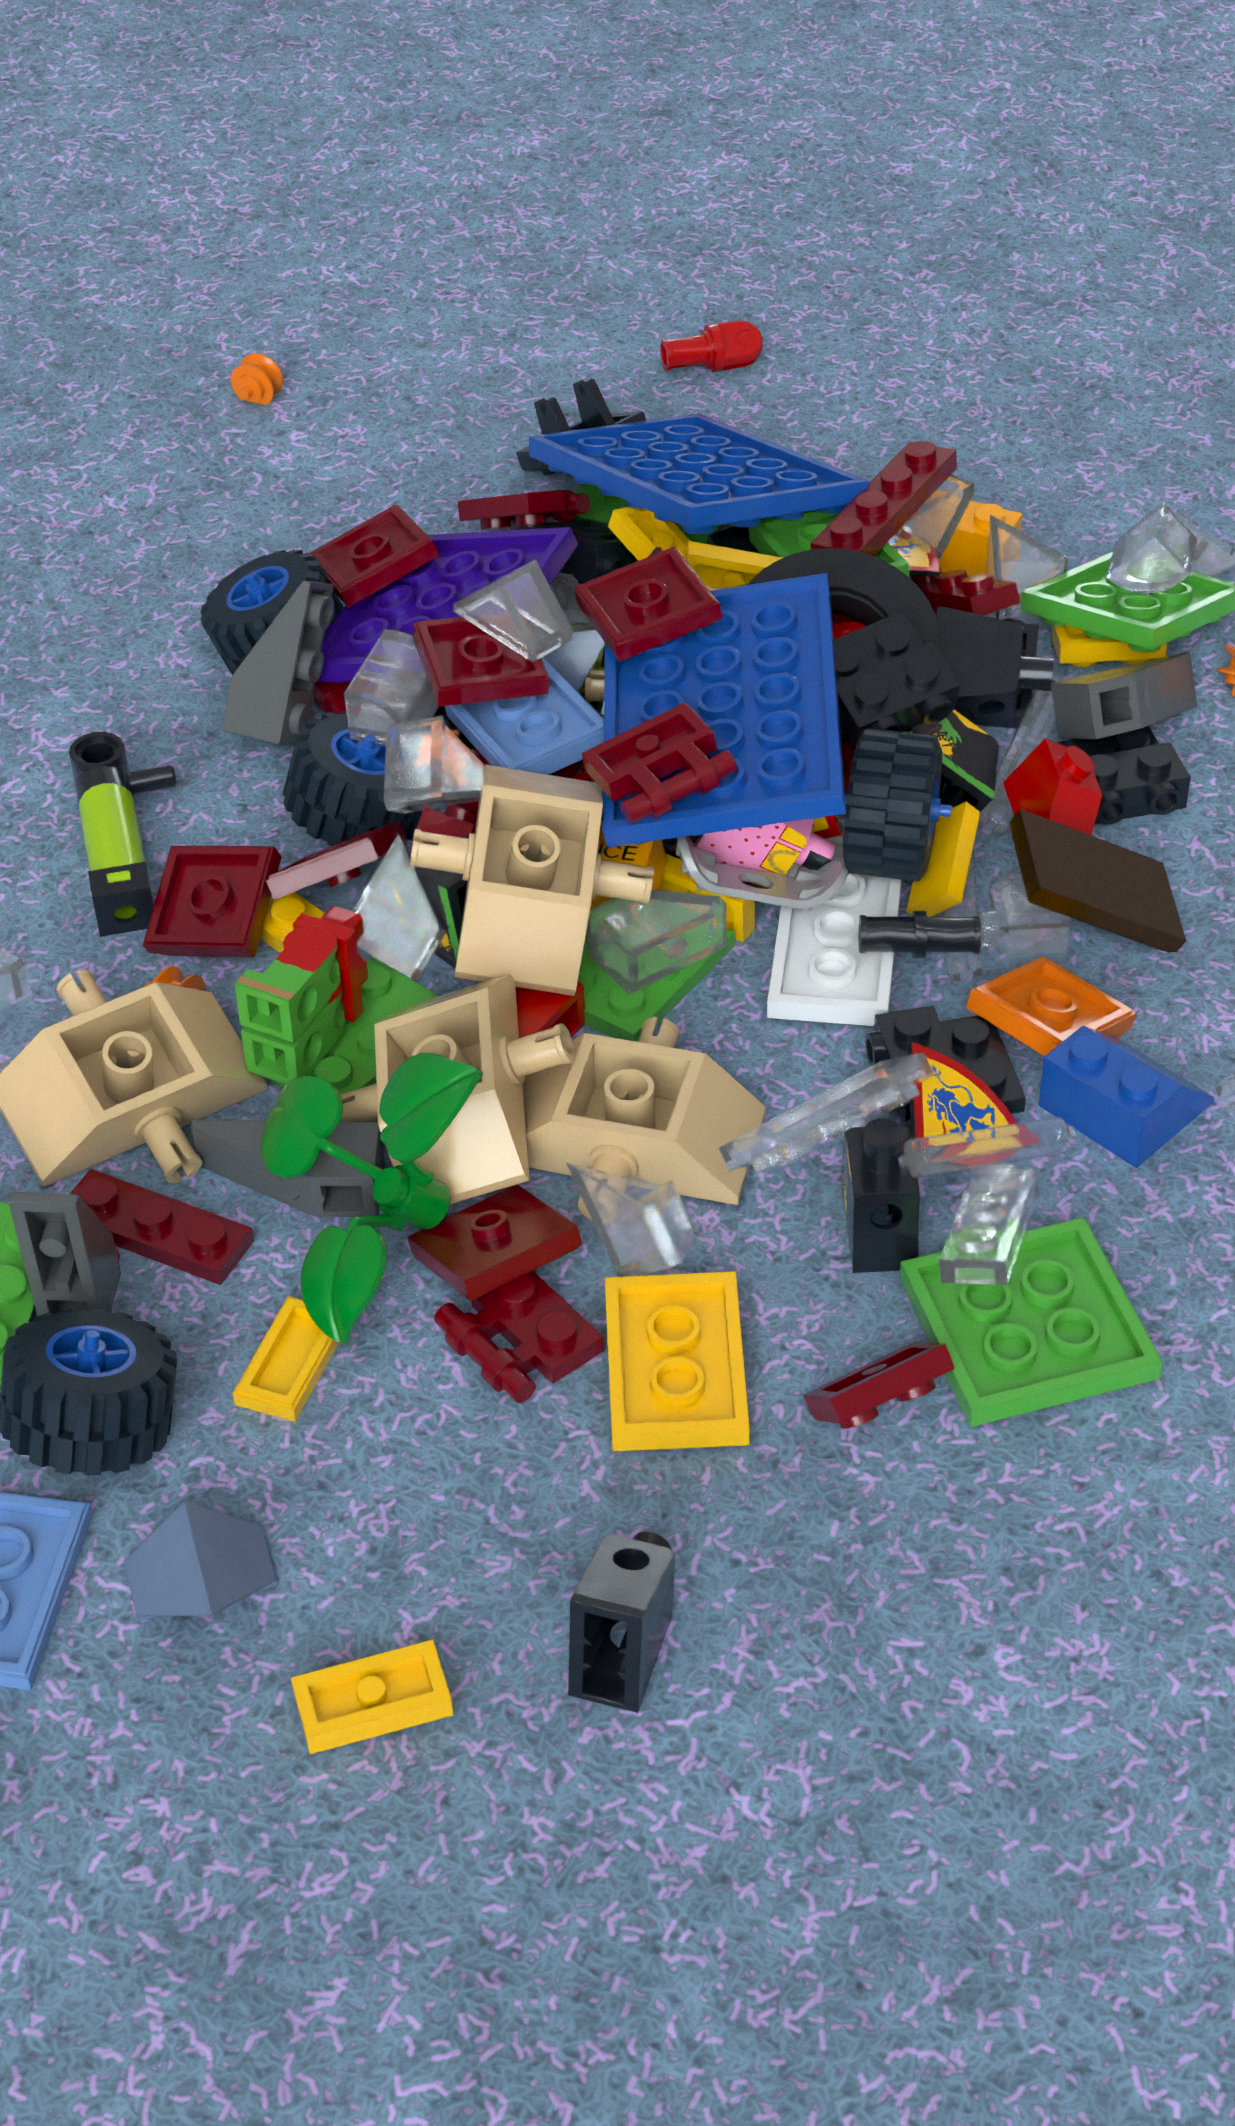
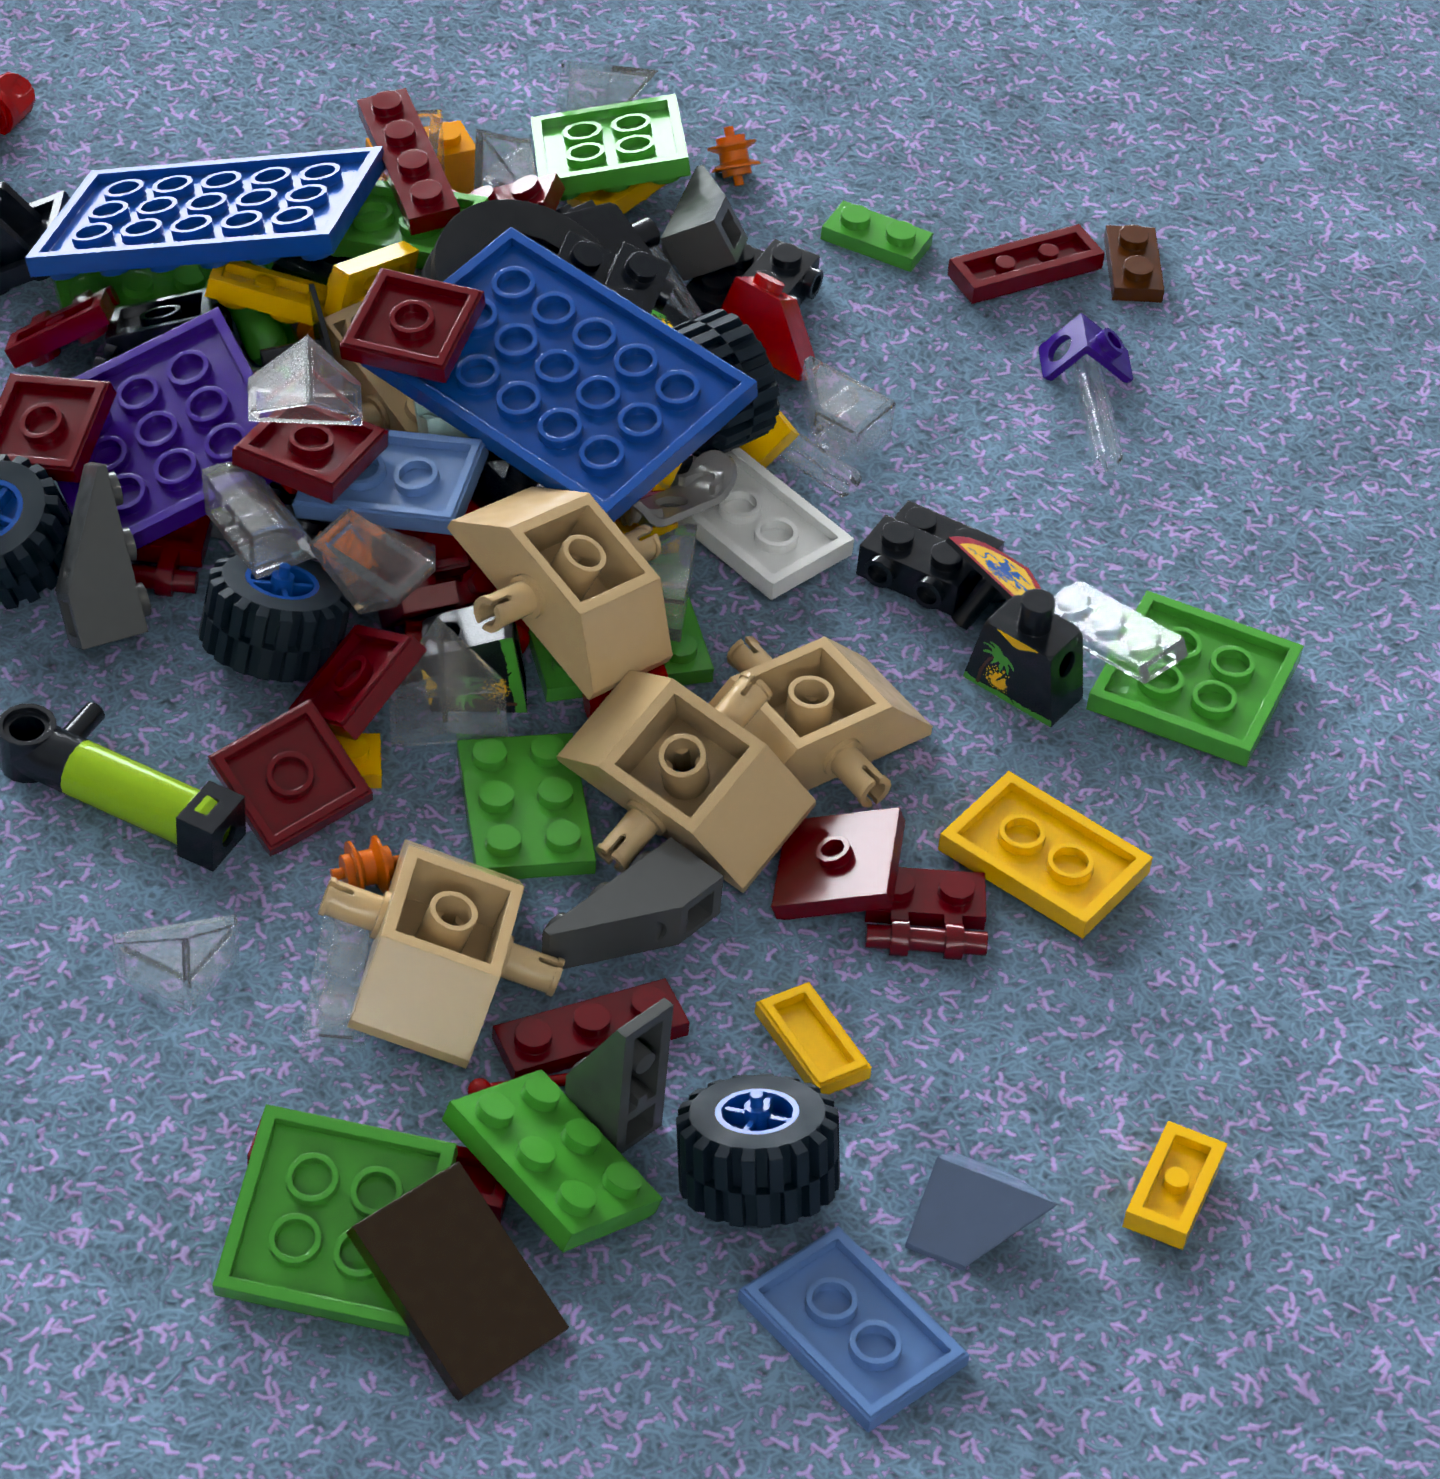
camera: 55 degrees left, 0 degrees up
(303, 996) = (514, 783): bright green hips -> none
(418, 1107) = (807, 943): green plant -> none
(626, 1584) = (1256, 1015): black torso -> none
(636, 1220) = (933, 779): clear slope -> none
(653, 750) = (583, 433): dark red plate -> none
(828, 1114) = (961, 619): clear plate -> none
(900, 1374) = (1175, 776): dark red plate -> none
(919, 934) = (814, 472): black pin -> none
(986, 1147) = (1060, 579): clear axle -> none
(1046, 1005) = (942, 473): orange tile -> none
(1096, 882) = (867, 364): dark brown tile -> none
(1117, 1094) = (1057, 502): blue slope -> none
(1153, 553) = (593, 101): clear brick -> none

